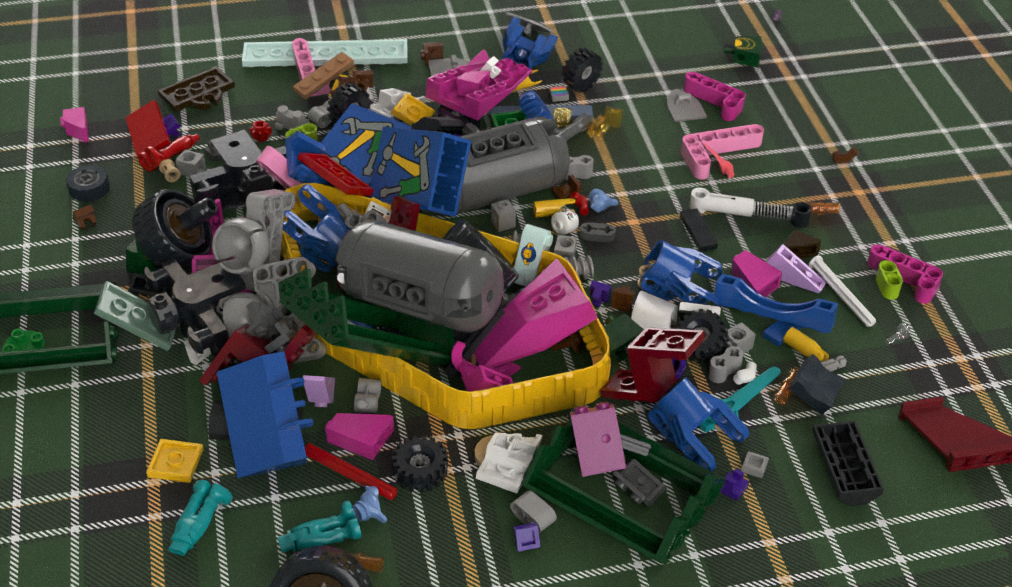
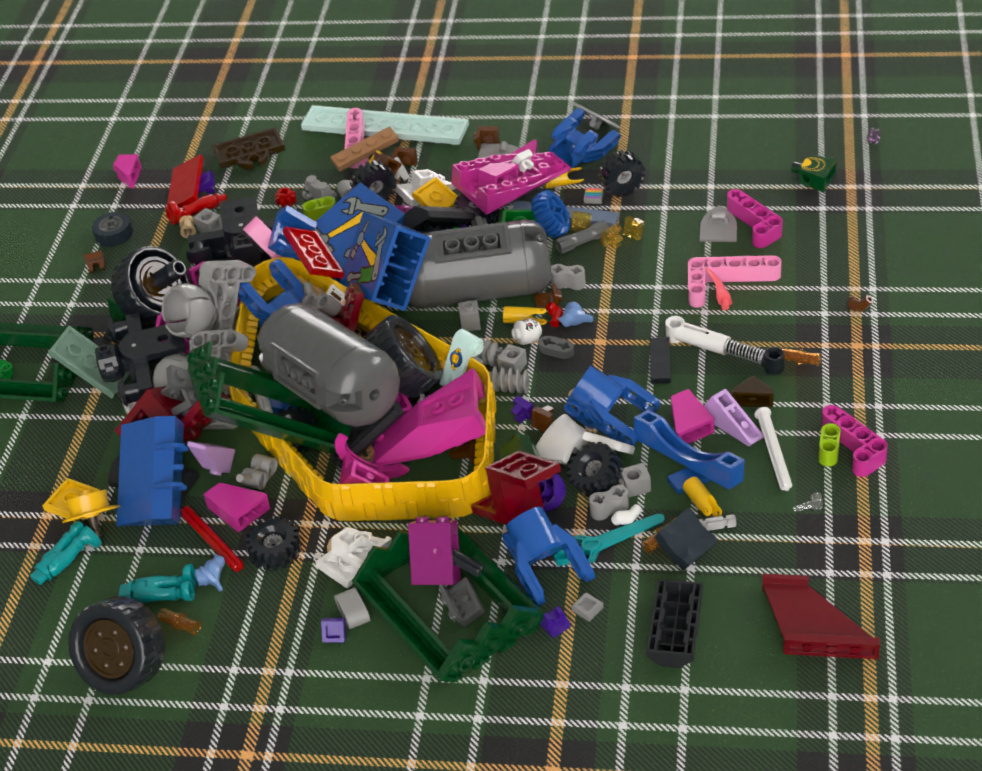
camera: 25 degrees right, 0 degrees up
(209, 462) = (89, 506): none -> yellow piece

